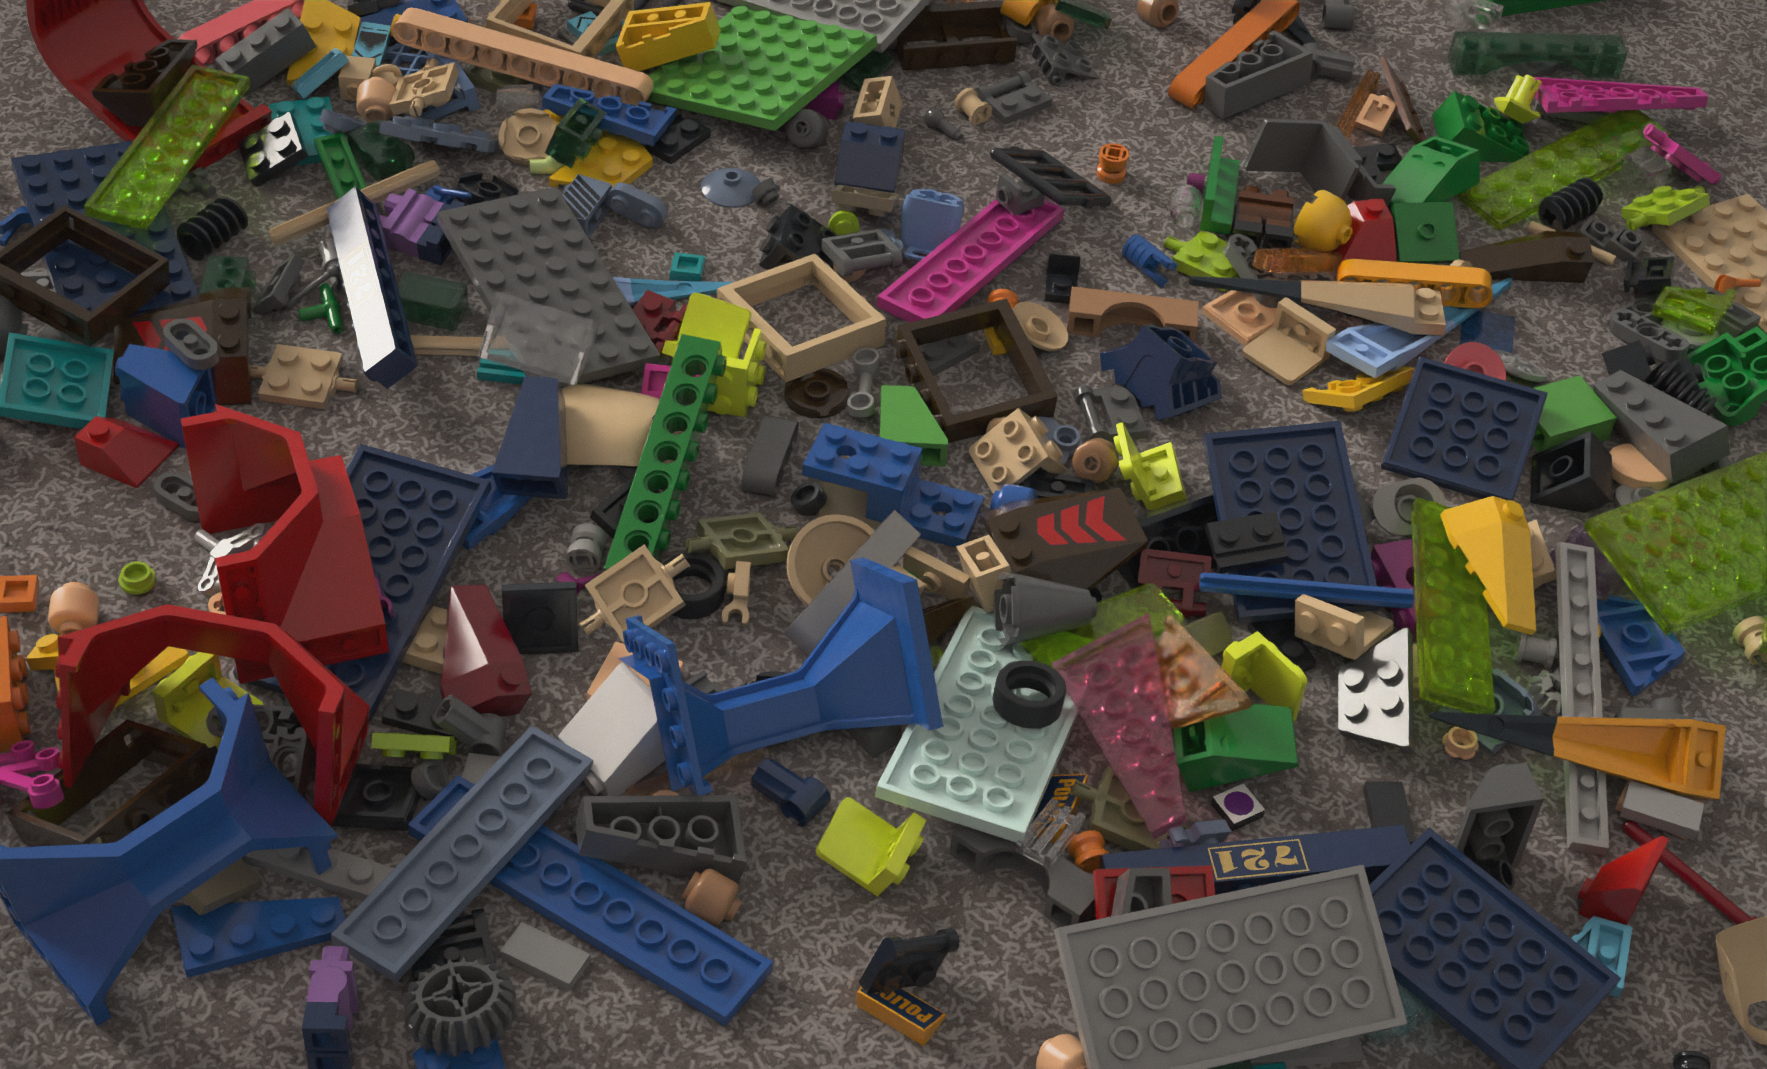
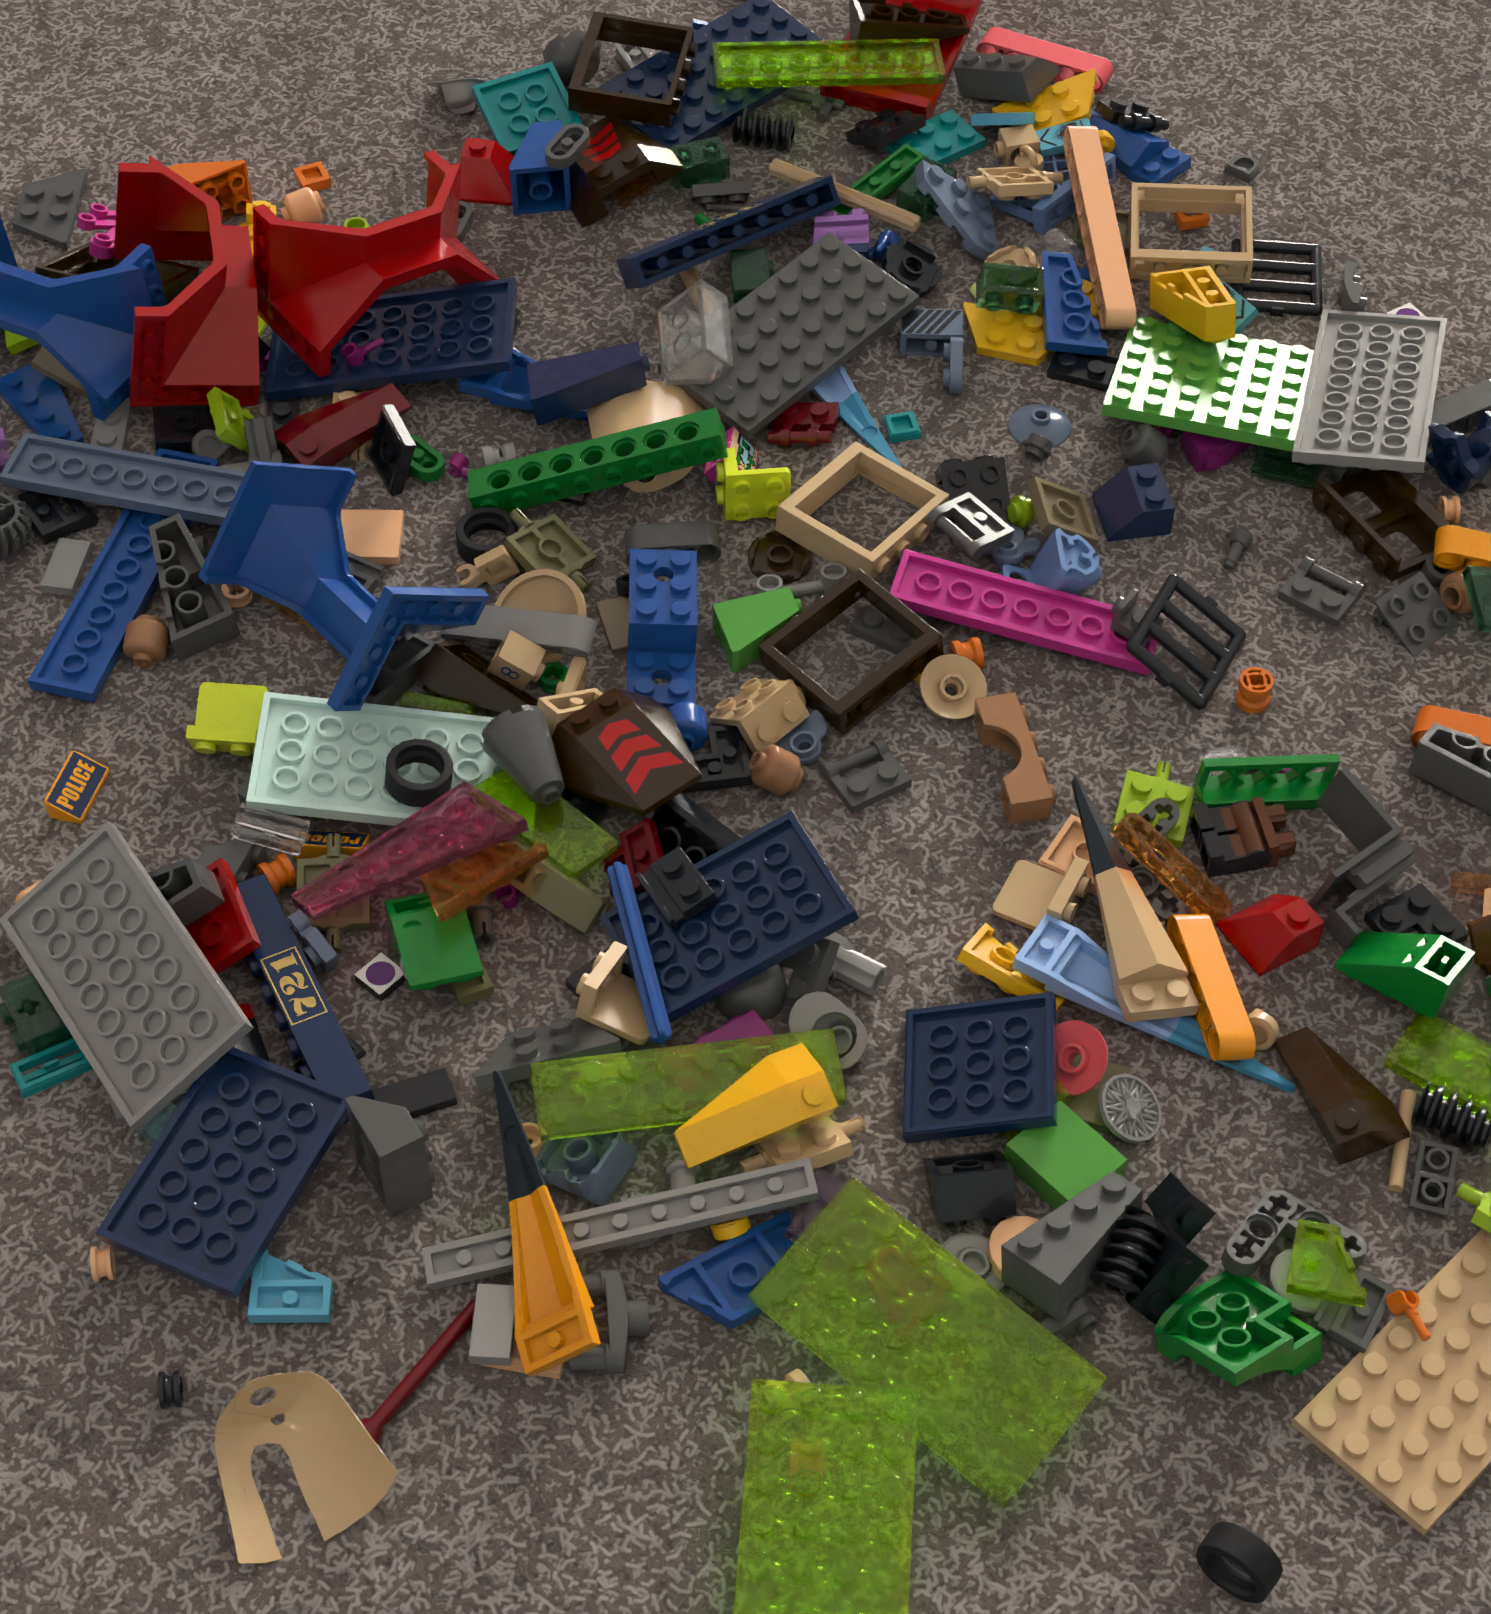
camera: 75 degrees right, 5 degrees up
(302, 377) = (619, 236): tan plate -> none
(337, 122) = (938, 148): sand blue plate -> none
(374, 99) = (991, 156): light nougat head -> none
(635, 588) = (443, 497): tan plate -> none
(713, 320) = (803, 457): neon yellow bracket -> none
(796, 796) = (277, 663): dark blue piece -> none
(878, 102) = (1206, 487): tan brick -> none
(908, 961) = (92, 760): black plate -> none
(969, 103) = (1277, 561): tan bush -> none
(1060, 277) = (1055, 693): black slope -> none
(1147, 258) = (1117, 752): blue hinge -> none
(1153, 472) = (777, 790): neon yellow bracket -> none
(1164, 371) = (936, 798): dark blue slope -> none
(1265, 670) = (533, 947): neon yellow bracket -> none
(1323, 223) = (1251, 877): yellow cylinder -> none
(1425, 232) = (1308, 982): green plate -> none
(1489, 329) = (1188, 1080): piece -> none
(1500, 871) = (360, 1203): black plate -> none
(1621, 883) = (368, 1297): red slope -> none
(1650, 275) = (1372, 1217): black plate -> none

